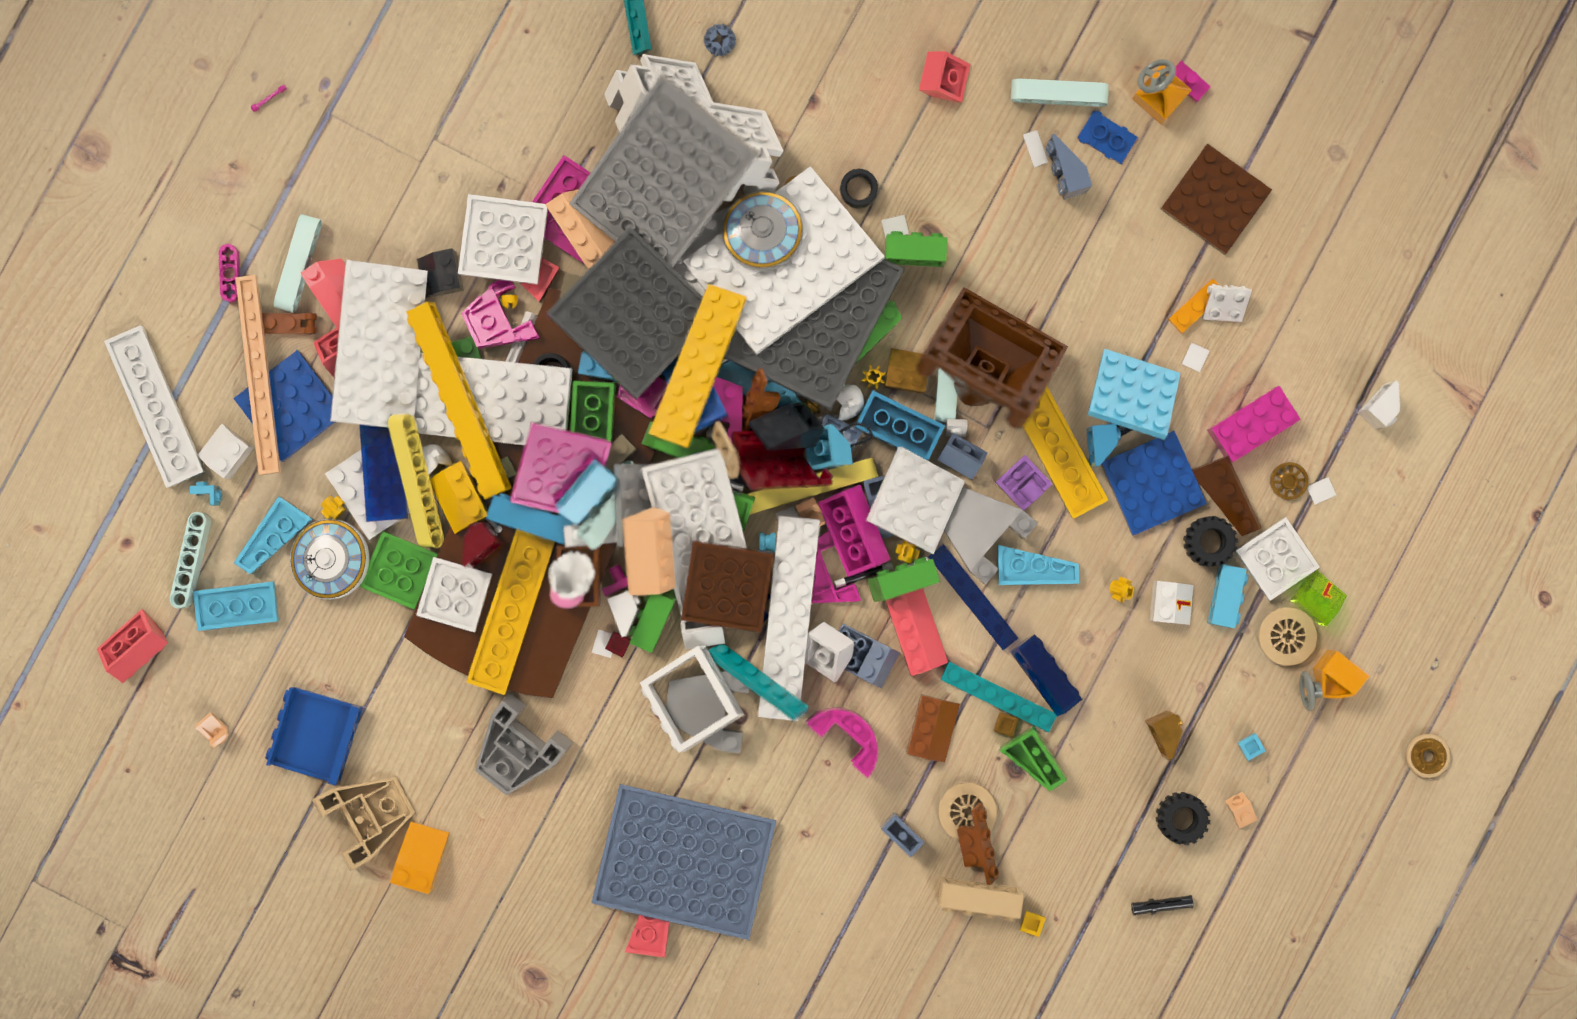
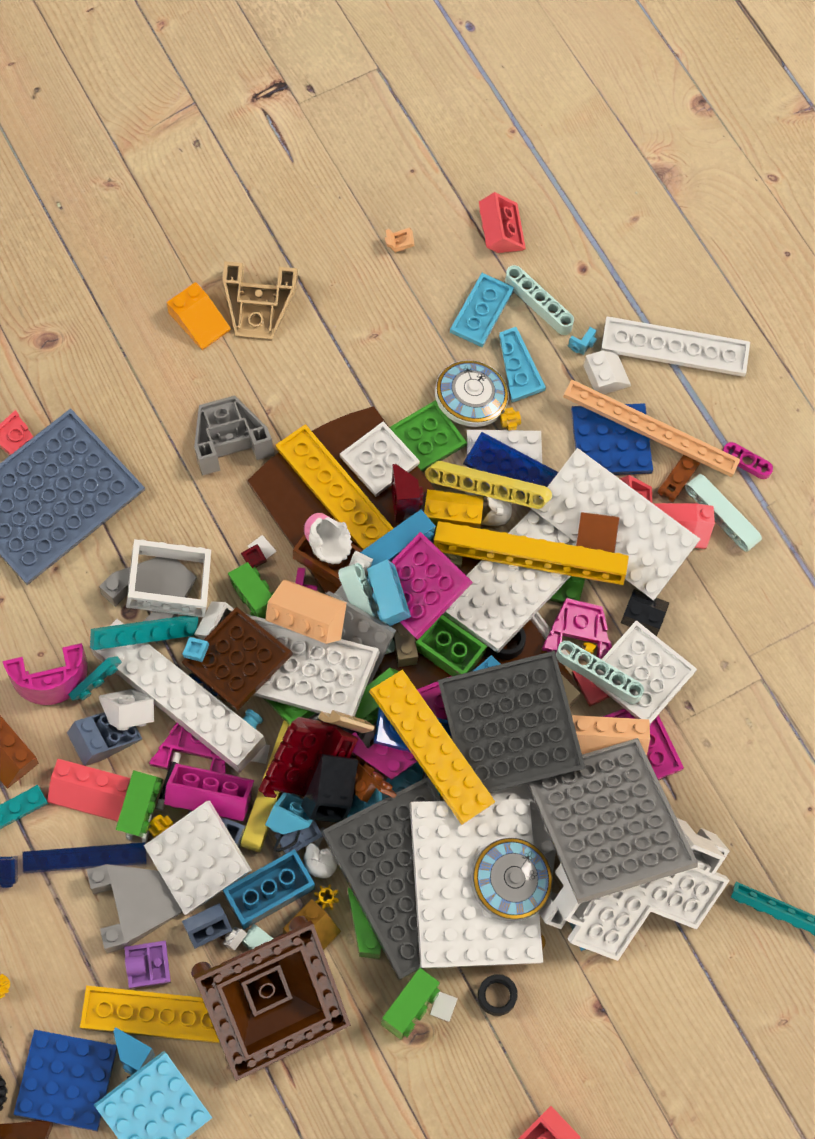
camera: 115 degrees right, 20 degrees down
(313, 735) = (345, 303): blue panel -> none
(400, 353) = (598, 532): none -> dark orange tile
(526, 263) = (605, 680): none -> light aqua beam
(625, 610) = (274, 570): white slope -> none
(714, 47) = (697, 968): sand blue gear -> none
(744, 625) = (195, 649): none -> medium azure plate
(810, 509) = (253, 770): light nougat bracket -> none
(823, 694) = (95, 679): none -> teal plate
(1028, 568) = (72, 920): medium azure wing -> none

